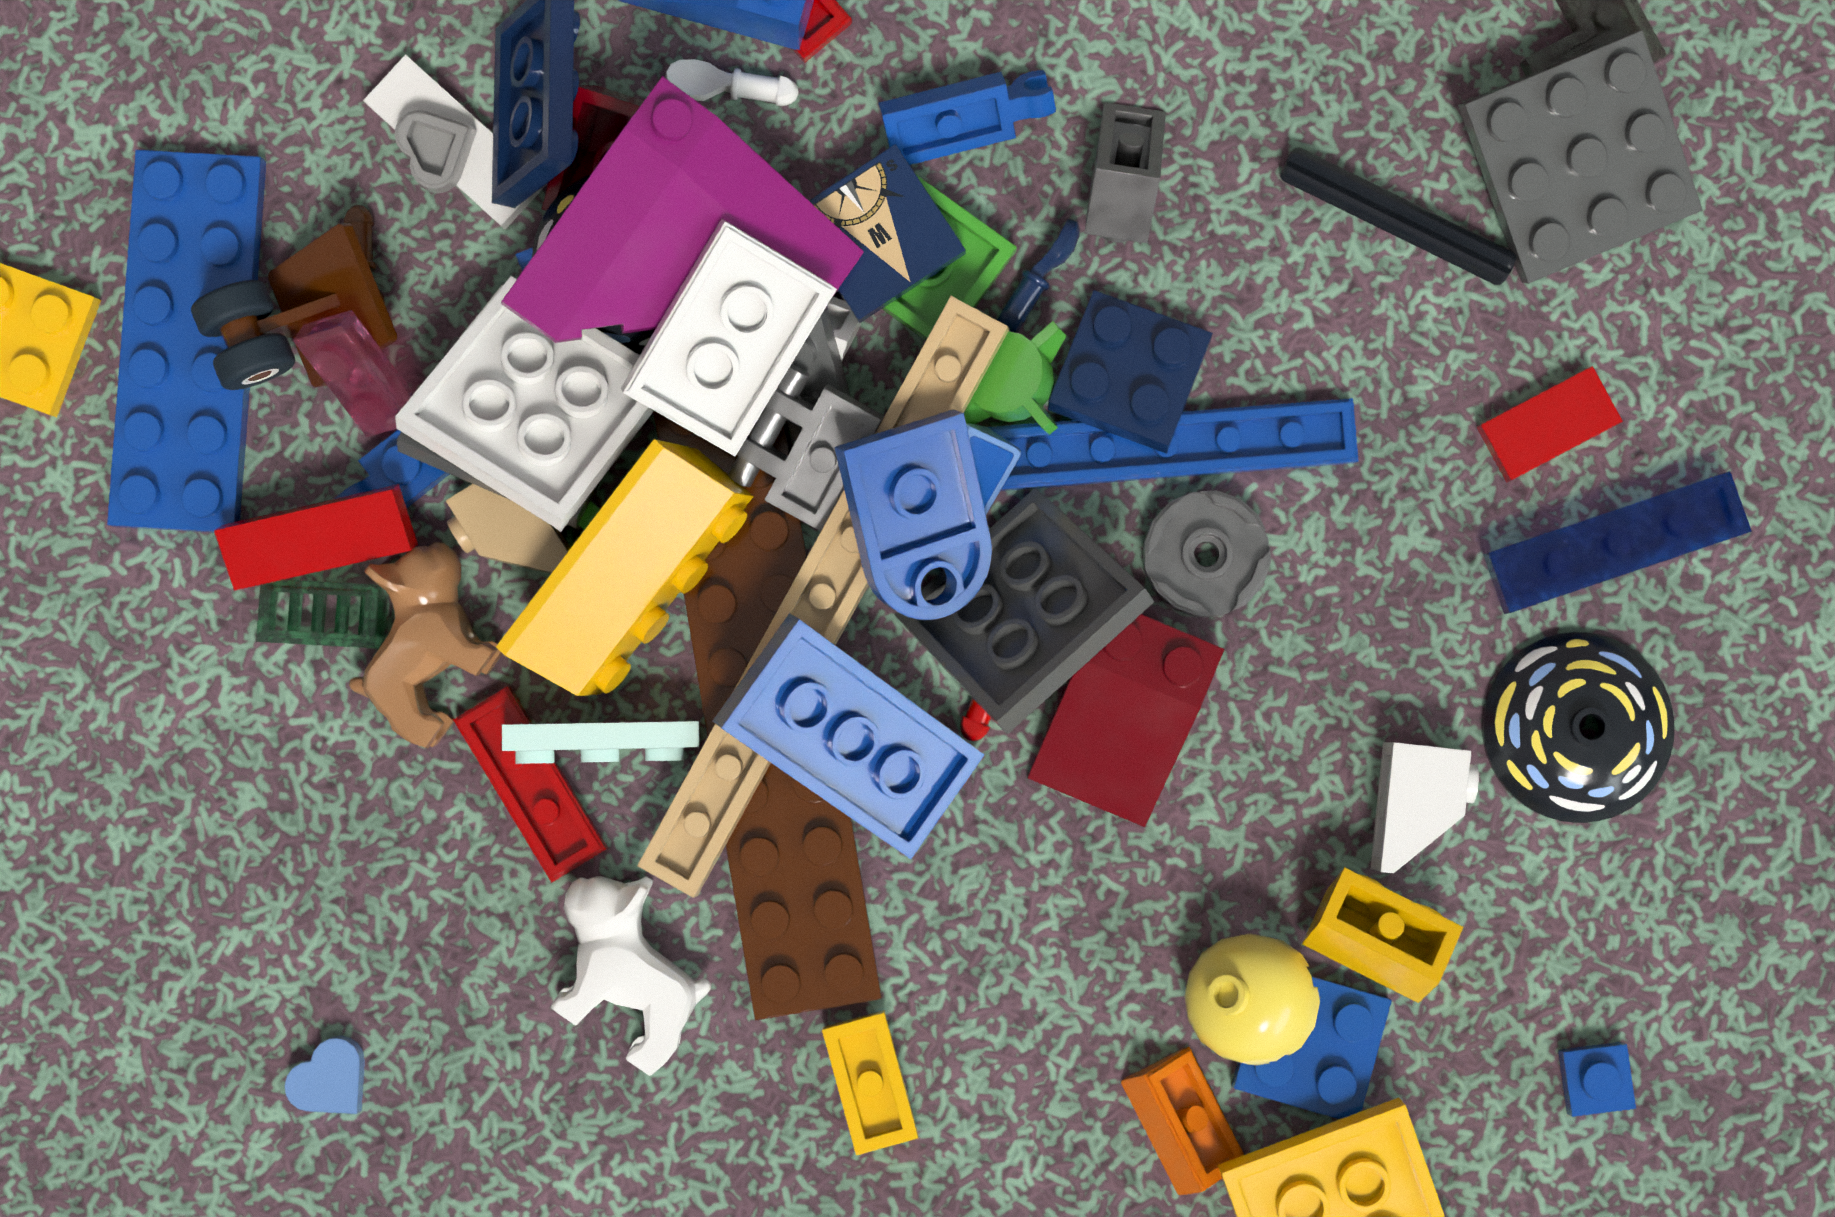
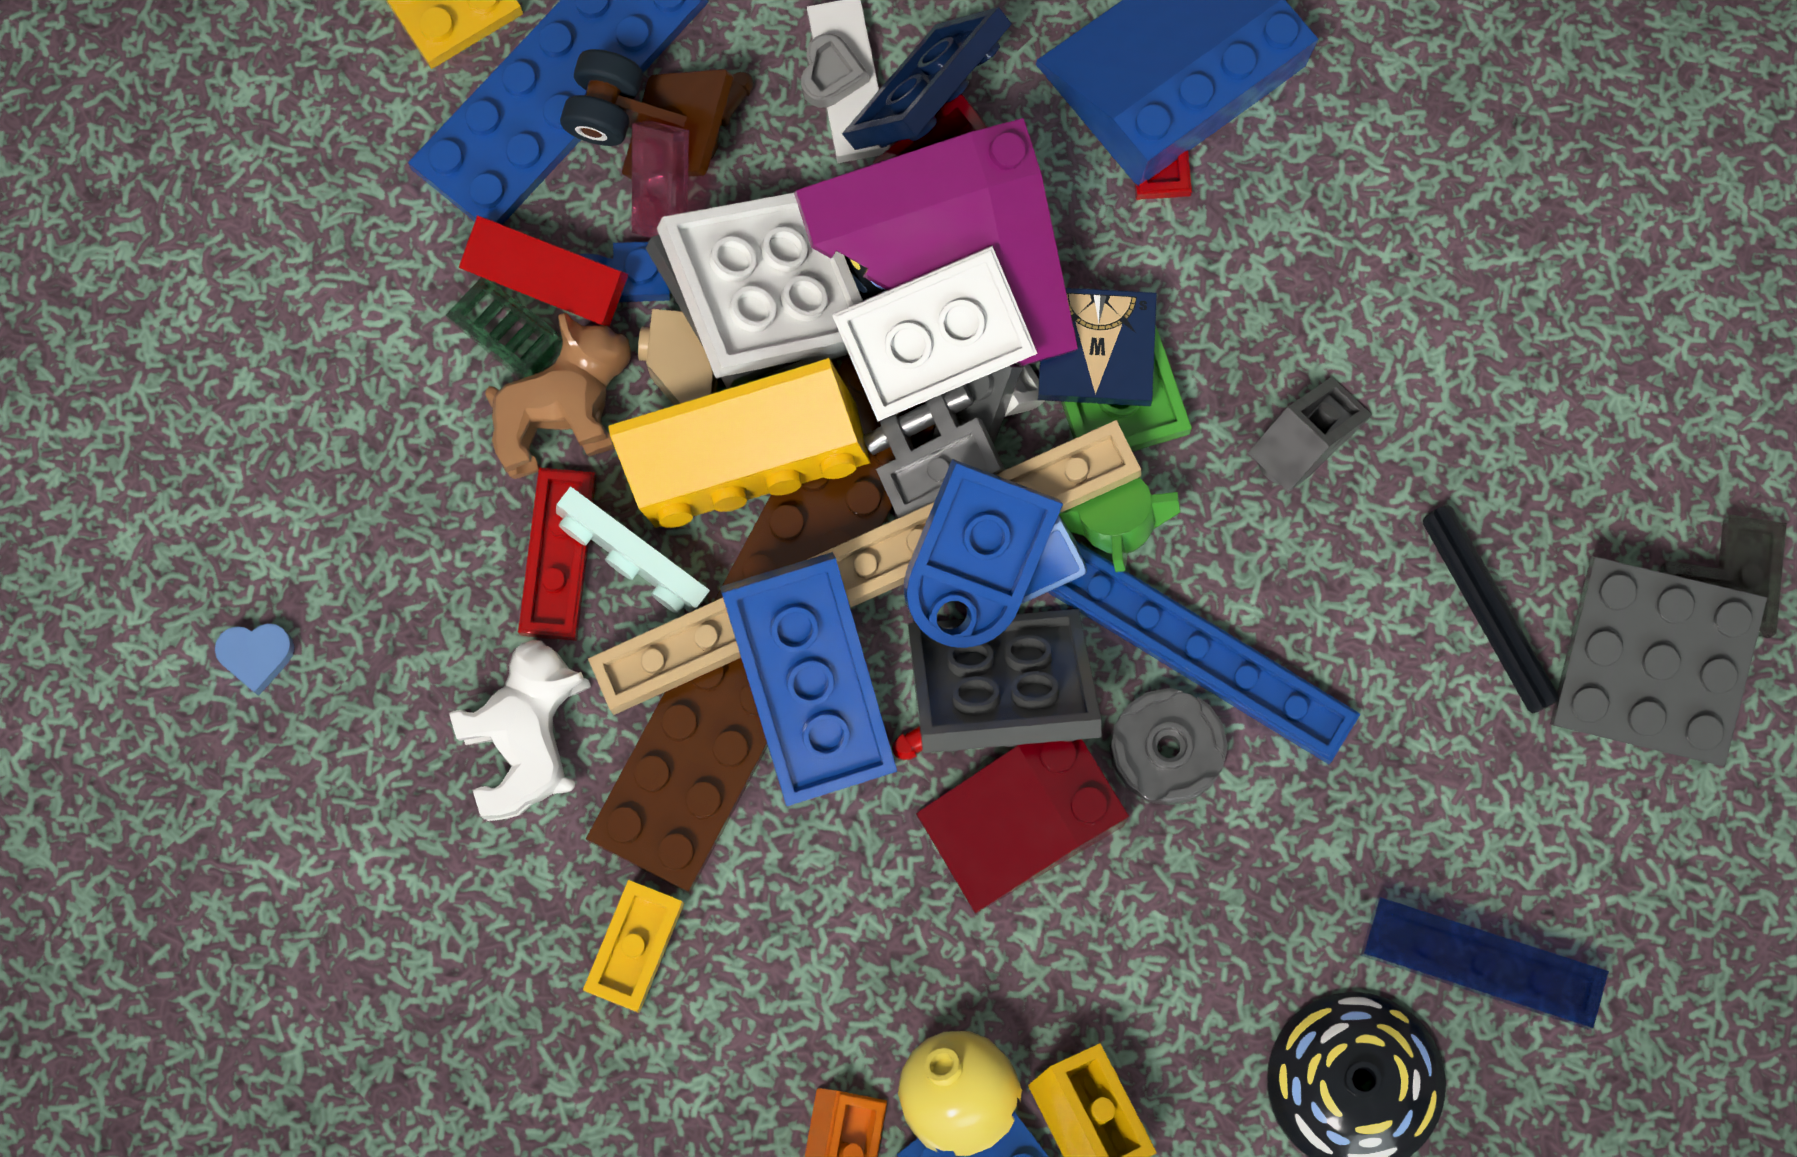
camera: 30 degrees right, 10 degrees down
(704, 80) = (1056, 161): white piece -> none
(964, 114) = (1221, 311): blue plate -> none
(1032, 281) = (1186, 463): dark blue piece -> none
(1130, 371) = (1209, 575): dark blue plate -> none
(1418, 799) = (1197, 1040): white slope -> none
(1549, 424) = (1496, 840): red tile -> none

